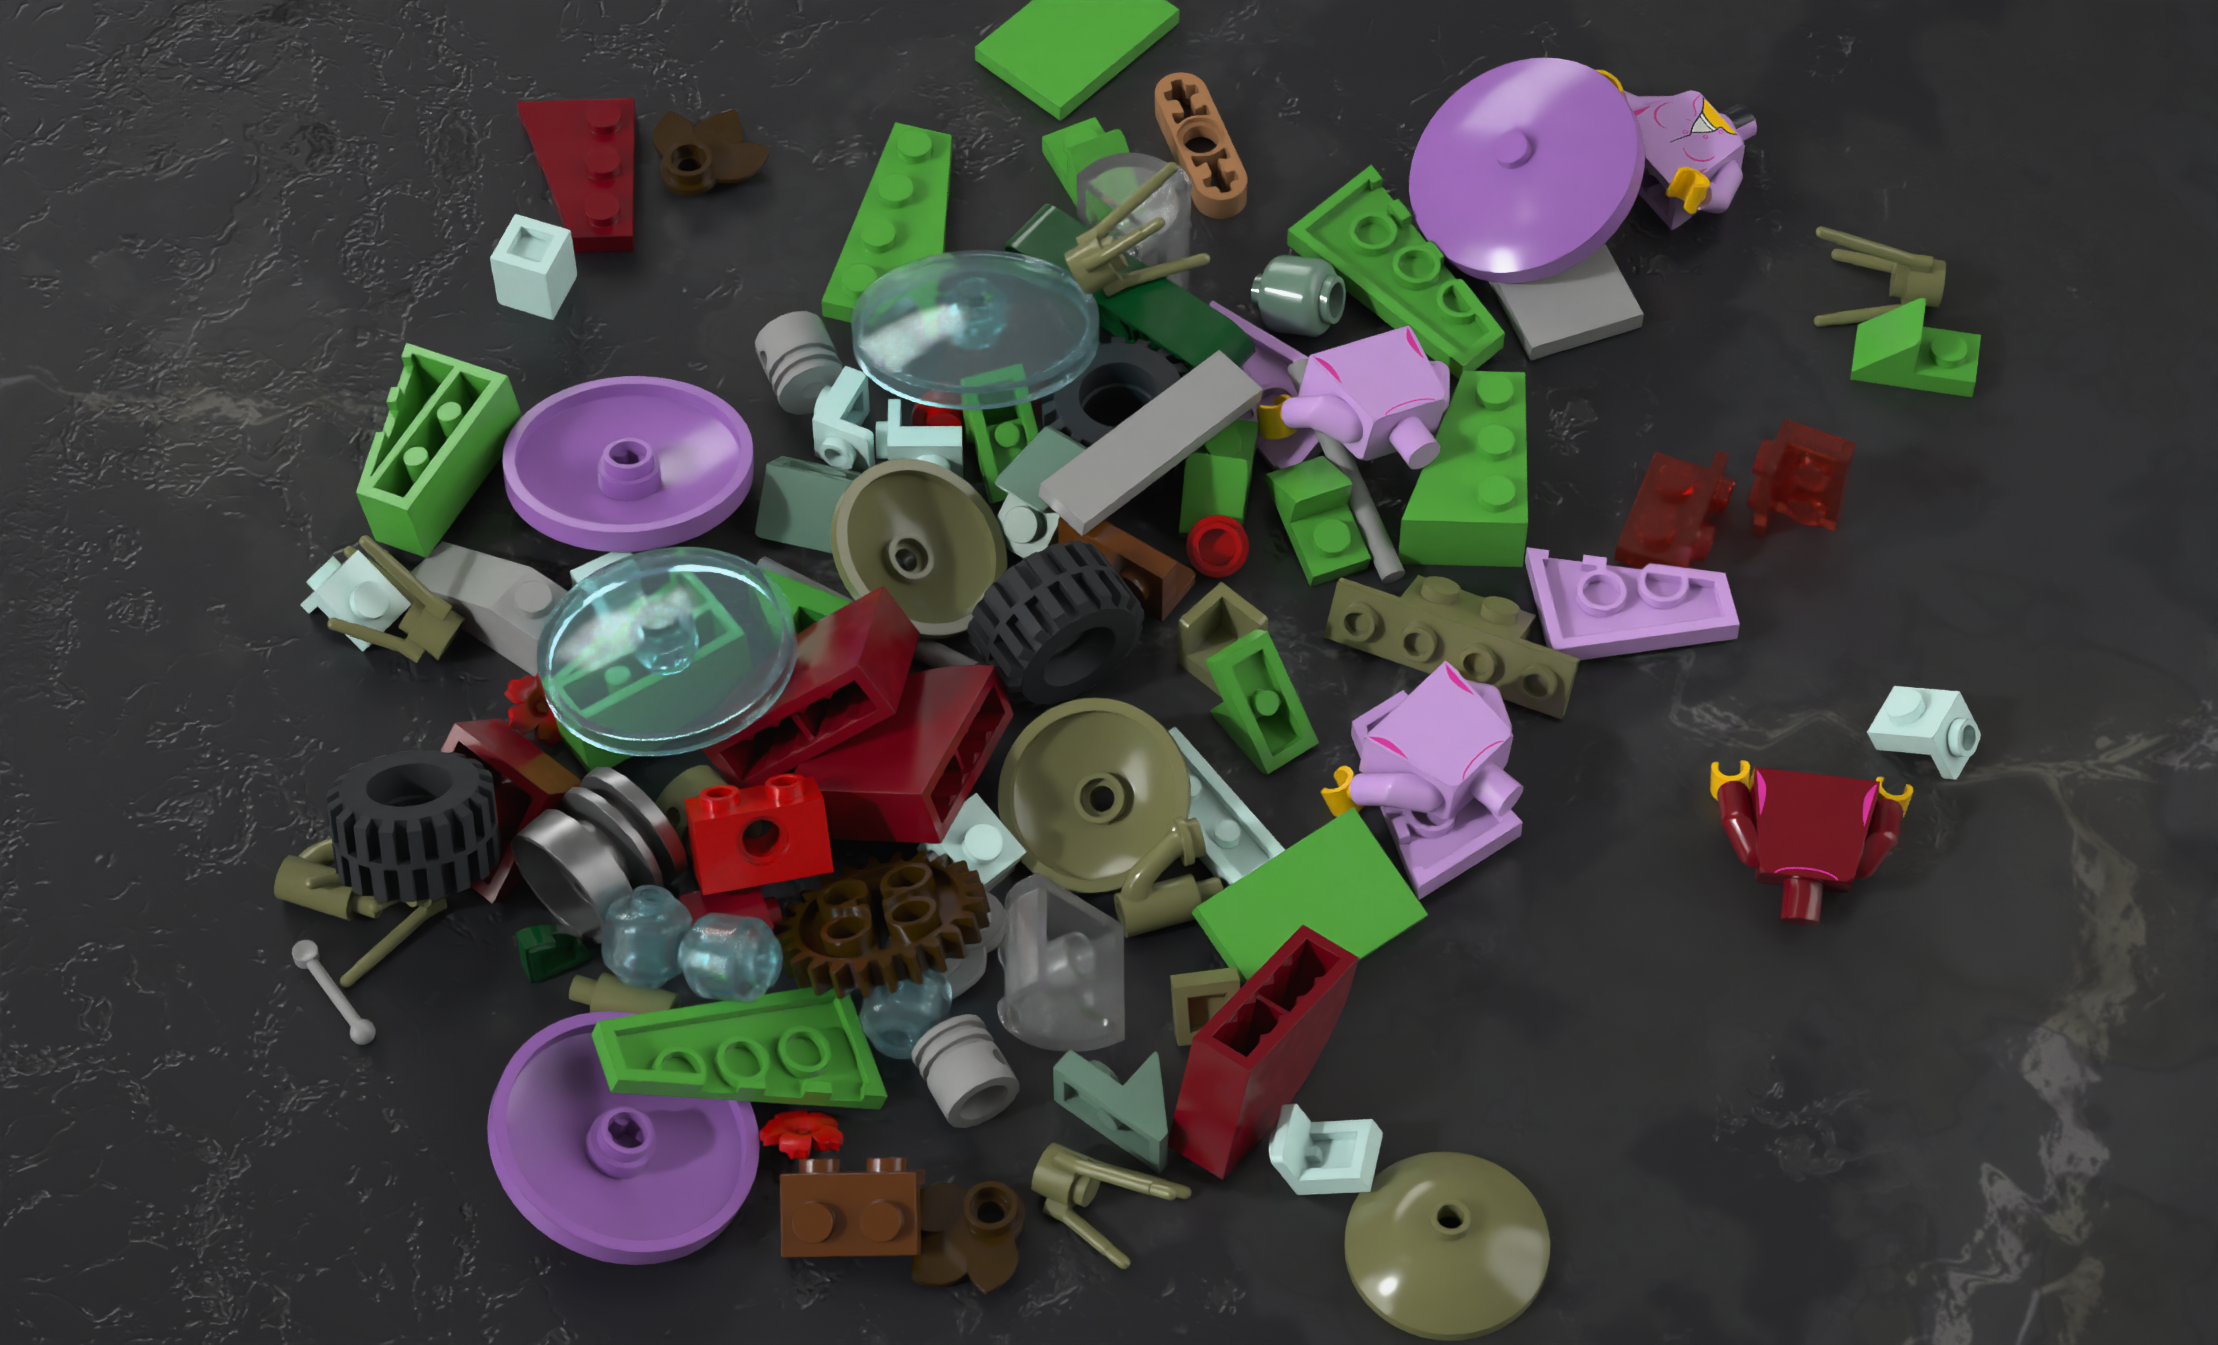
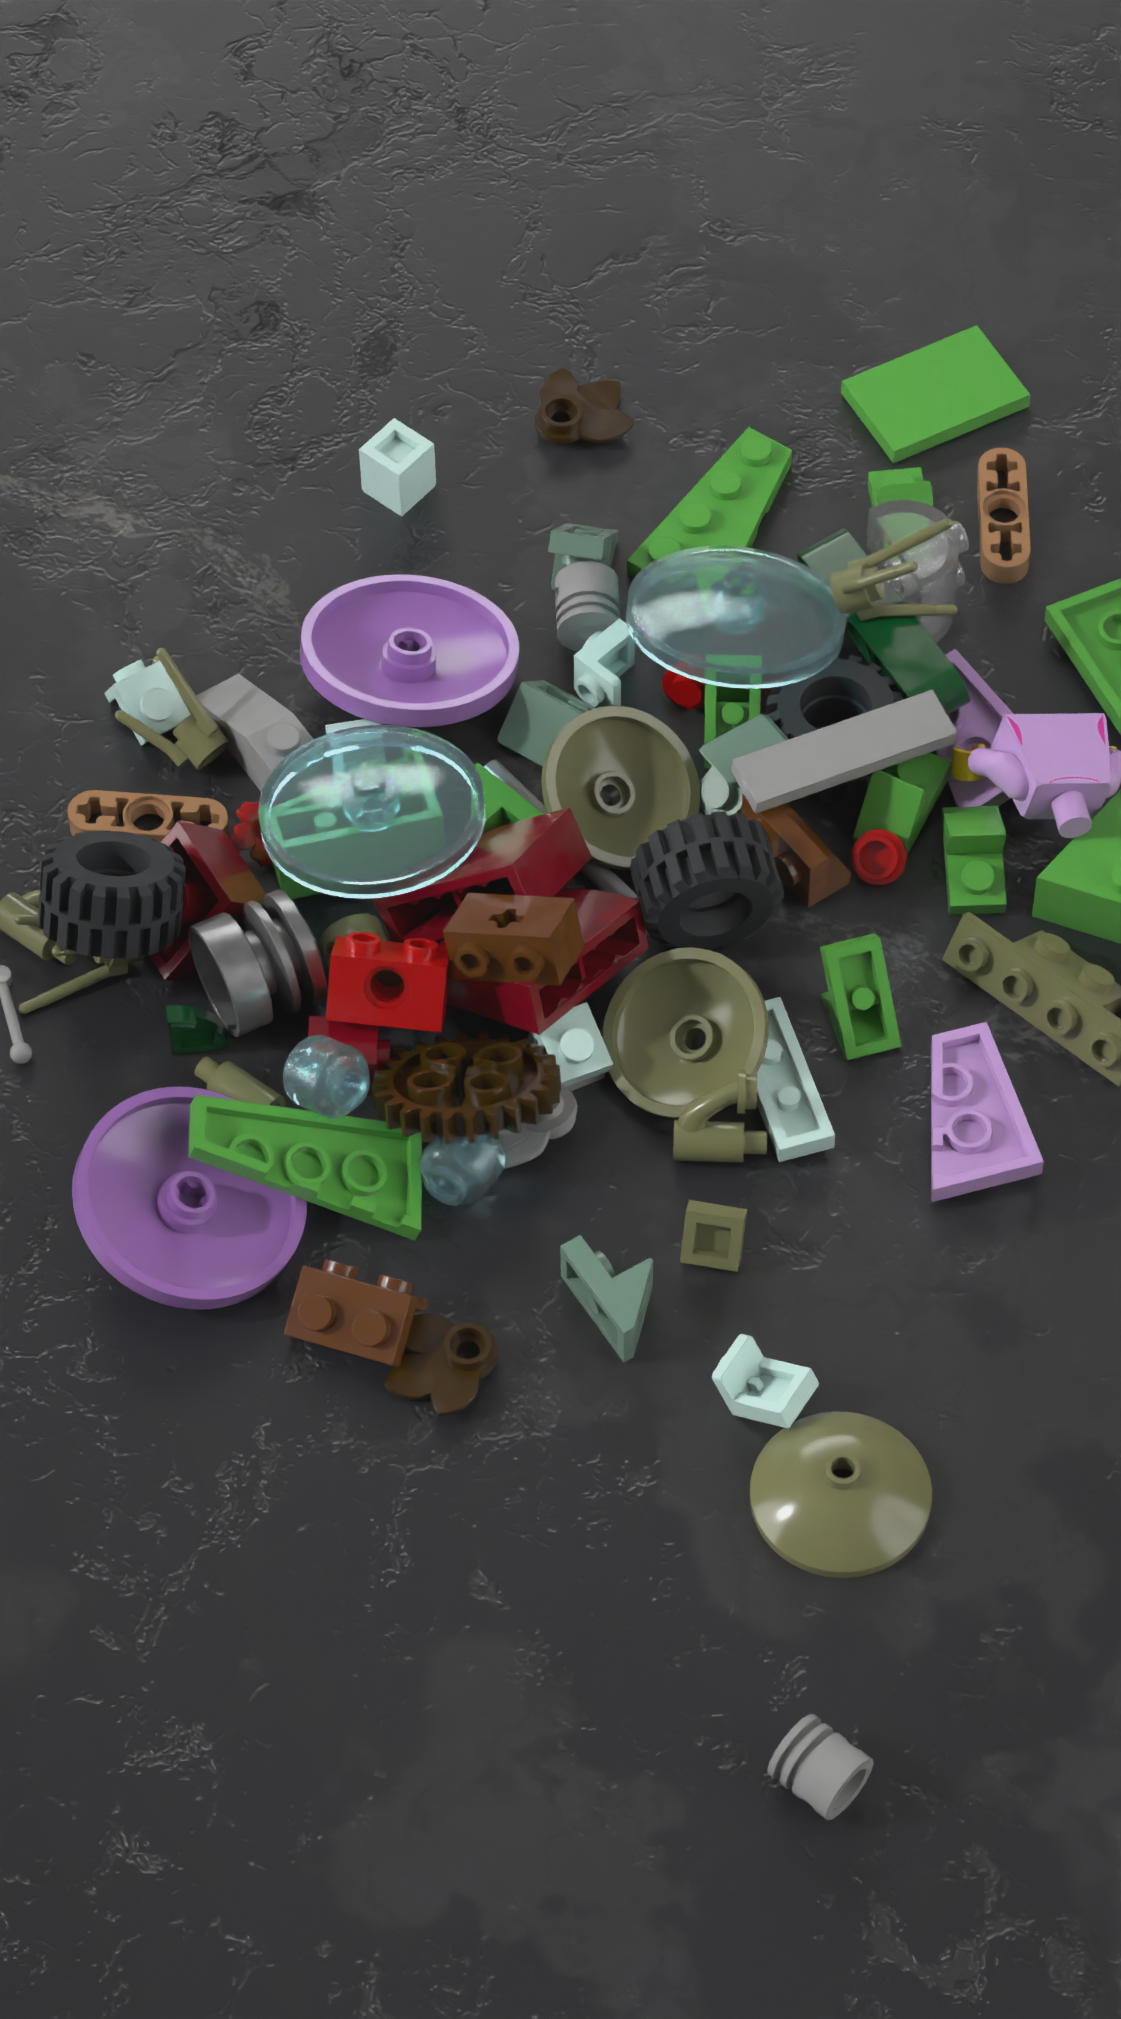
camera: 20 degrees right, 0 degrees up
(383, 719) = (134, 805): none -> medium nougat beam
(435, 447) = (254, 594): bright green wedge -> none
(589, 166) = (479, 397): dark red wing -> none
(645, 936) = (265, 1038): clear light blue head -> none
(766, 299) = (580, 544): none -> sand green slope
(799, 1132) = (339, 1237): red plant -> none
(883, 746) = (513, 938): none -> reddish brown brick
(929, 443) = (668, 705): light aqua bracket -> none
(965, 1071) = (490, 1228): light grey piece -> none
(1061, 969) = (602, 1168): clear brick -> none
(1074, 1179) = (548, 1344): olive plant -> none
(1212, 626) = (846, 918): olive panel -> none
(1259, 1051) = (735, 1282): dark red brick -> none
(1299, 295) = (1033, 665): sand green head -> none
(1328, 881) = (831, 1185): bright green tile -> none
(1360, 500) = (1015, 861): light grey bar -> none
(1434, 752) = (987, 1079): lavender torso -> none

